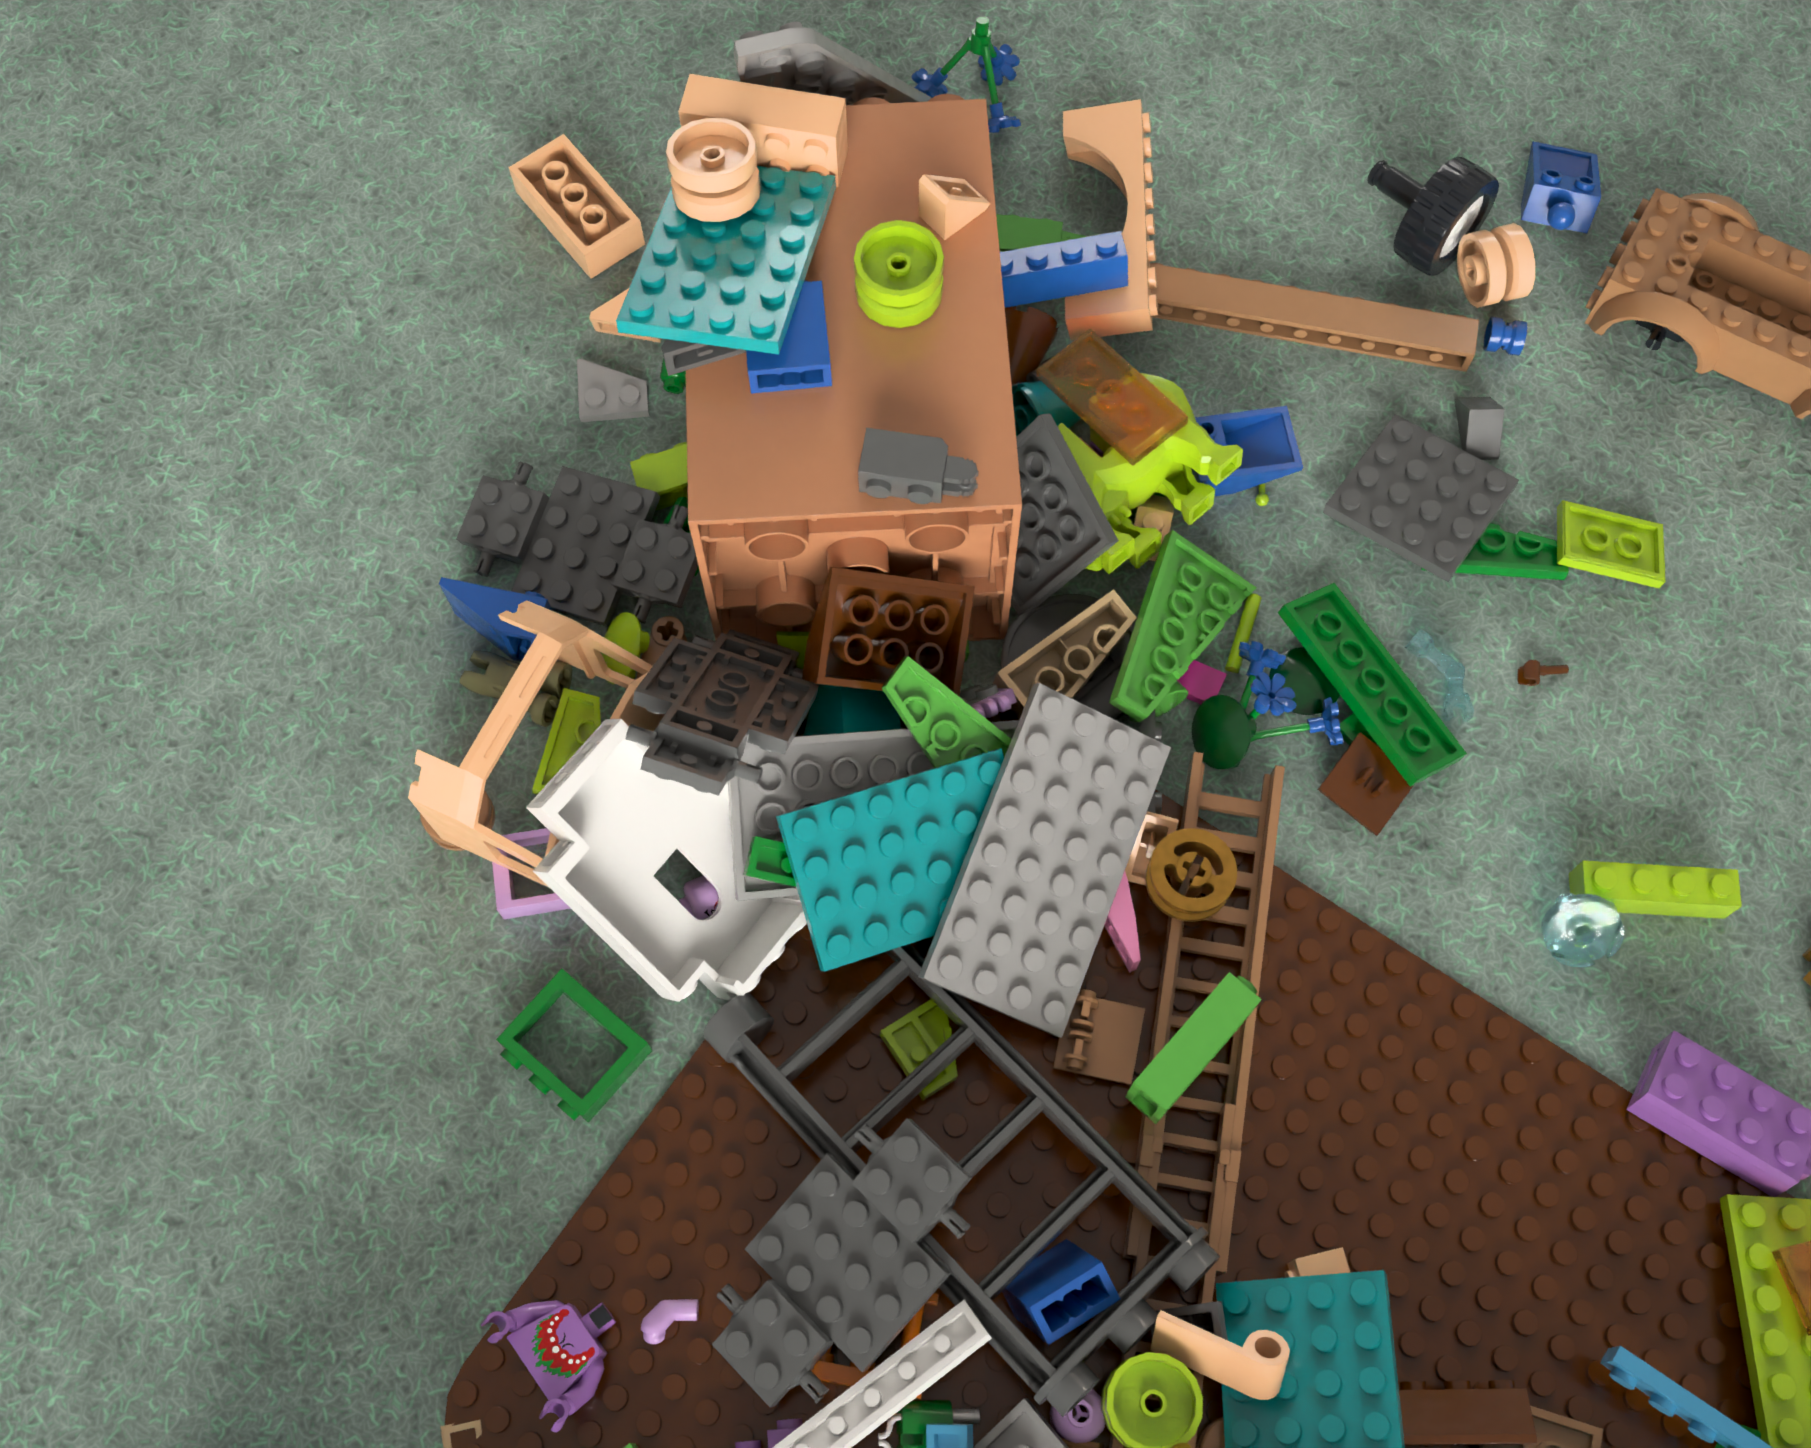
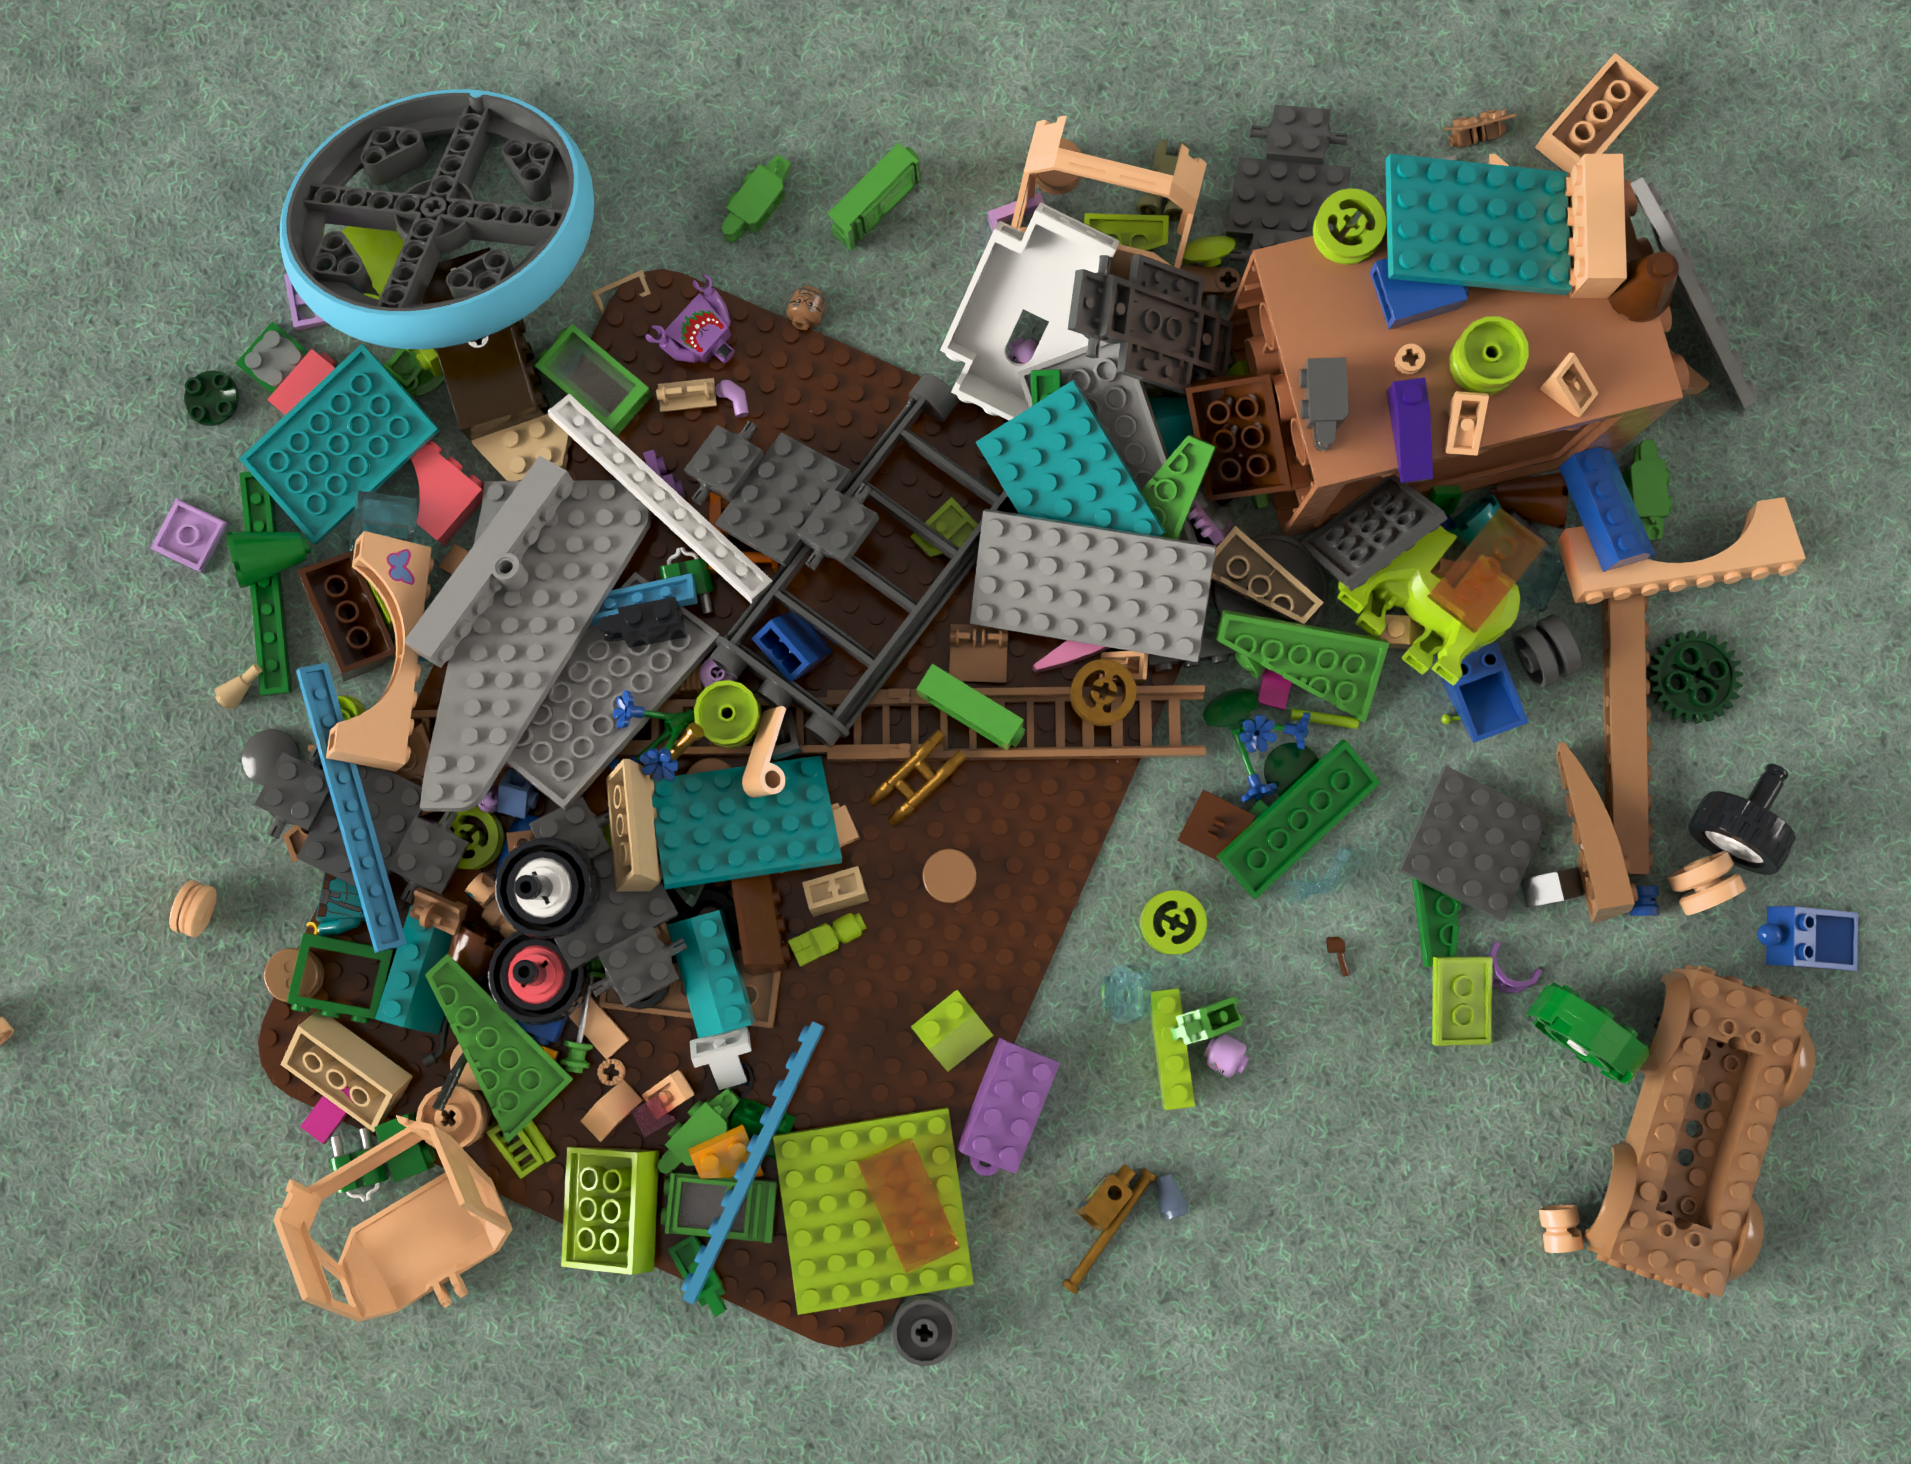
camera: 85 degrees right, 15 degrees up
(386, 1230) = (756, 199): none -> bright green hinge
(432, 1056) = (875, 195): none -> bright green door
(480, 609) = (1214, 152): blue slope -> none
(545, 1080) = (912, 332): green window -> none
(552, 326) = (1487, 127): none -> medium nougat hinge
(563, 1187) = (806, 307): none -> medium nougat head
(648, 1388) = (686, 395): none -> tan hinge
(703, 380) = (1332, 213): none -> lime wheel
(713, 169) = (1540, 193): light nougat wheel -> none
(849, 76) = (1647, 287): none -> reddish brown cone
(889, 366) = (1404, 367): none -> light nougat bush
(969, 378) = (1411, 429): none -> dark purple slope
(977, 313) = (1466, 422): none -> light nougat slope
(995, 66) = (1828, 436): blue plant -> none
(1205, 368) = (1547, 651): none -> dark grey wheel
(1237, 222) = (1685, 700): none -> dark green gear
(1249, 1141) = (933, 778): none -> pearl gold piece
(1404, 1133) = (949, 876): none -> medium nougat head
(1412, 1298) = (835, 891): none -> tan hinge
(1455, 362) = (1600, 859): none -> medium nougat wedge
(1478, 1329) = (826, 938): none -> lime piece
(1509, 863) = (1182, 901): none -> lime wheel
(1593, 475) = (1503, 980): none -> medium lavender helmet
(1614, 1172) = (952, 1030): none -> lime slope
(1630, 829) = (1208, 1021): none -> bright green hinge
(1665, 824) = (1226, 1055): none -> lavender head
(1672, 405) = (1589, 1032): none -> green piece

